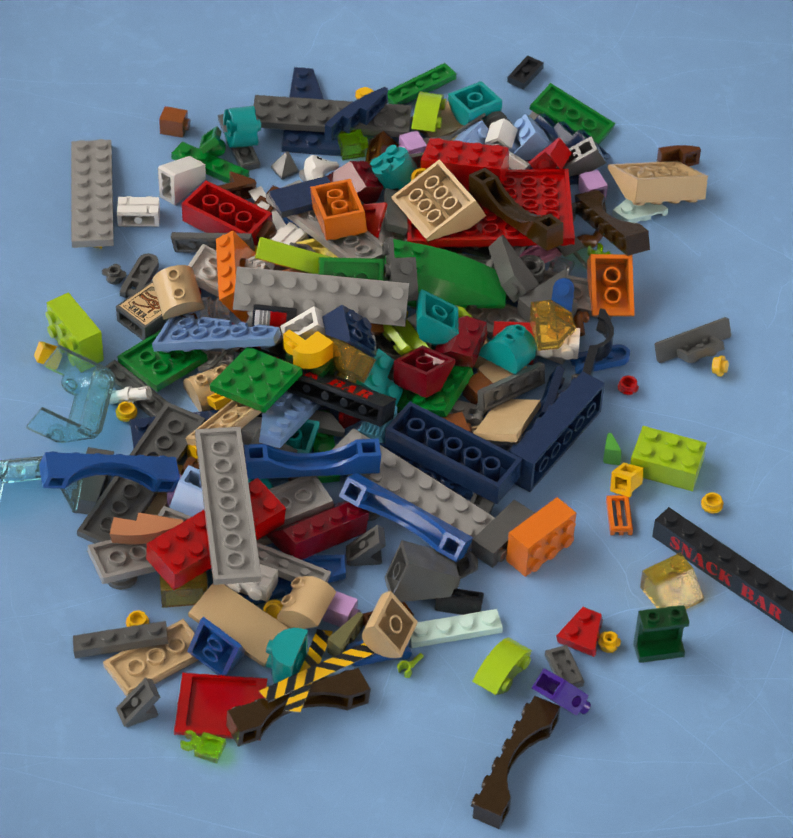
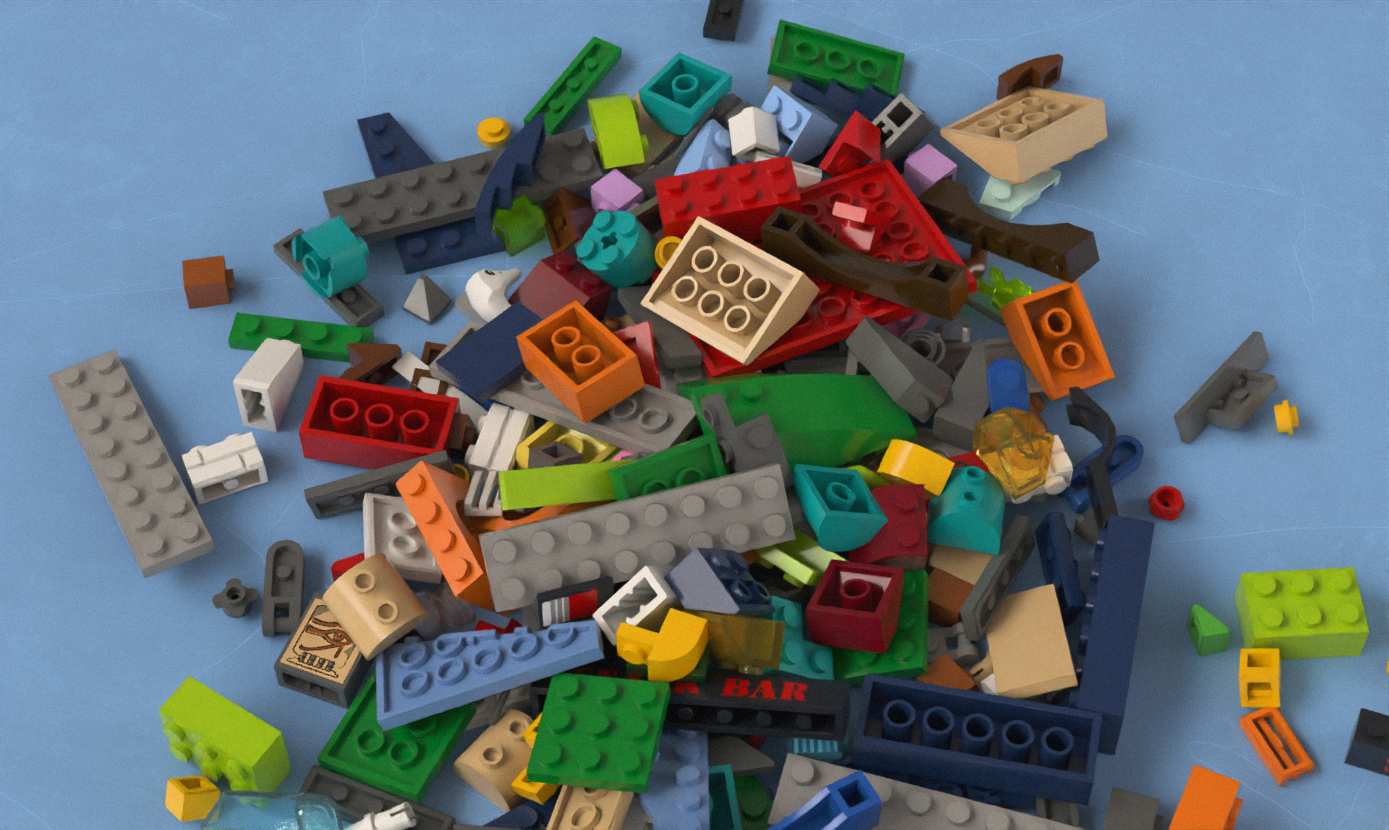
camera: 20 degrees left, 5 degrees up
(212, 143) = (289, 298): green tile -> none
(493, 315) = (914, 464): none -> yellow brick
(528, 193) = (860, 226): none -> red slope

